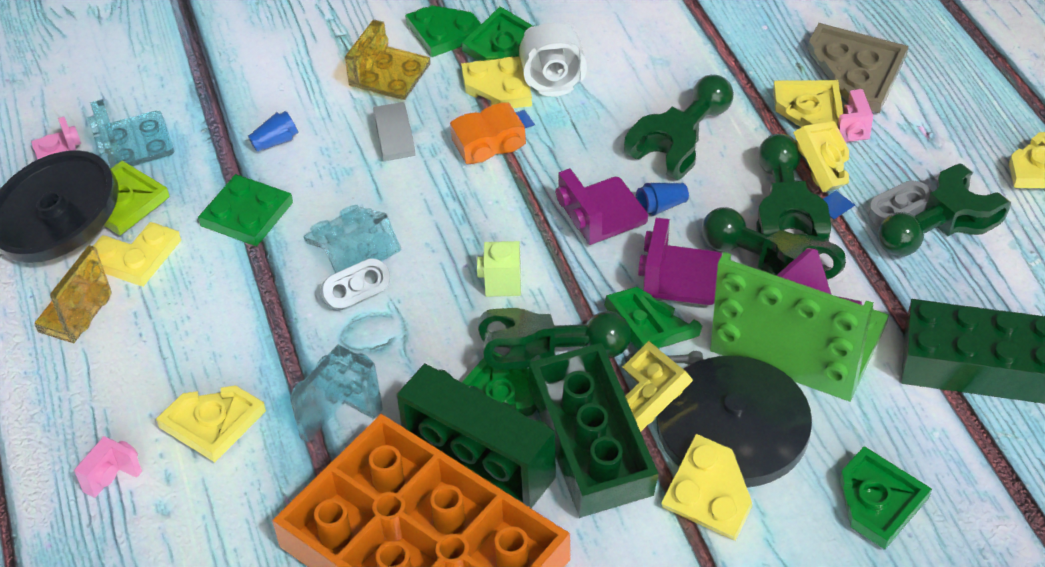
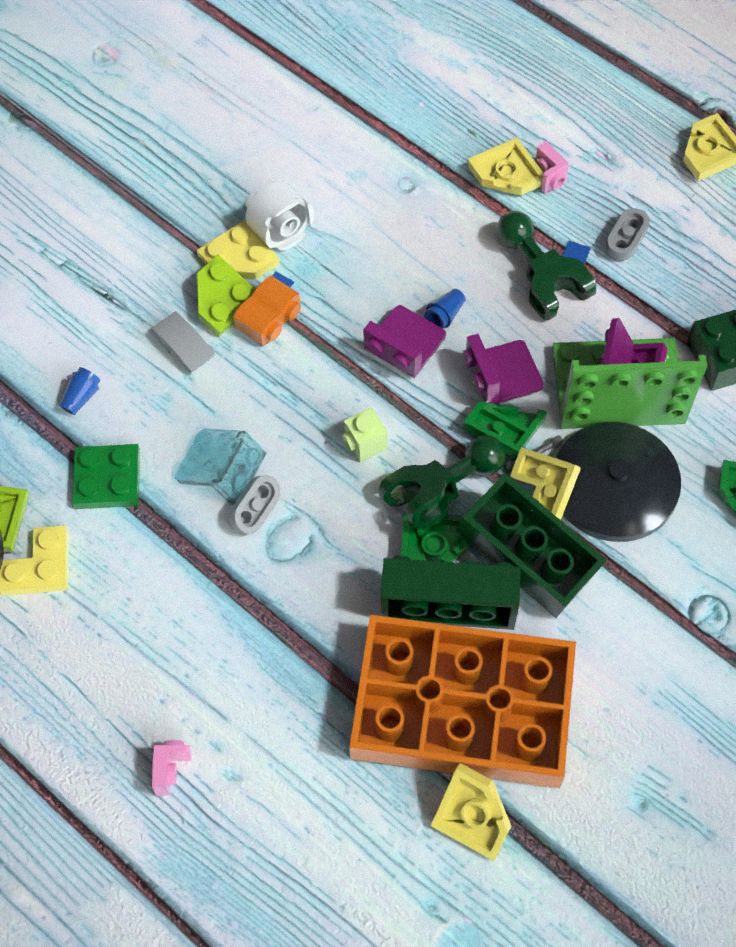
camera: 30 degrees left, 15 degrees up
(76, 299) = (24, 636): clear yellow bracket -> none
(212, 420) = (221, 682): light yellow plate -> none
(336, 380) = (318, 594): clear light blue bracket -> none
(381, 68) = (134, 282): clear yellow bracket -> none
(441, 28) = (154, 218): green plate -> none
(452, 97) = (220, 294): none -> lime plate
(496, 37) = (216, 209): green plate -> none
(678, 131) = (420, 239): dark green piece -> none
(710, 489) = (638, 548): light yellow plate -> none
(726, 230) = (576, 322): dark green piece -> none
(825, 154) = (547, 210): light yellow plate -> none
(858, 62) = (519, 111): dark tan plate -> none
(948, 208) = (667, 224): dark green piece -> none

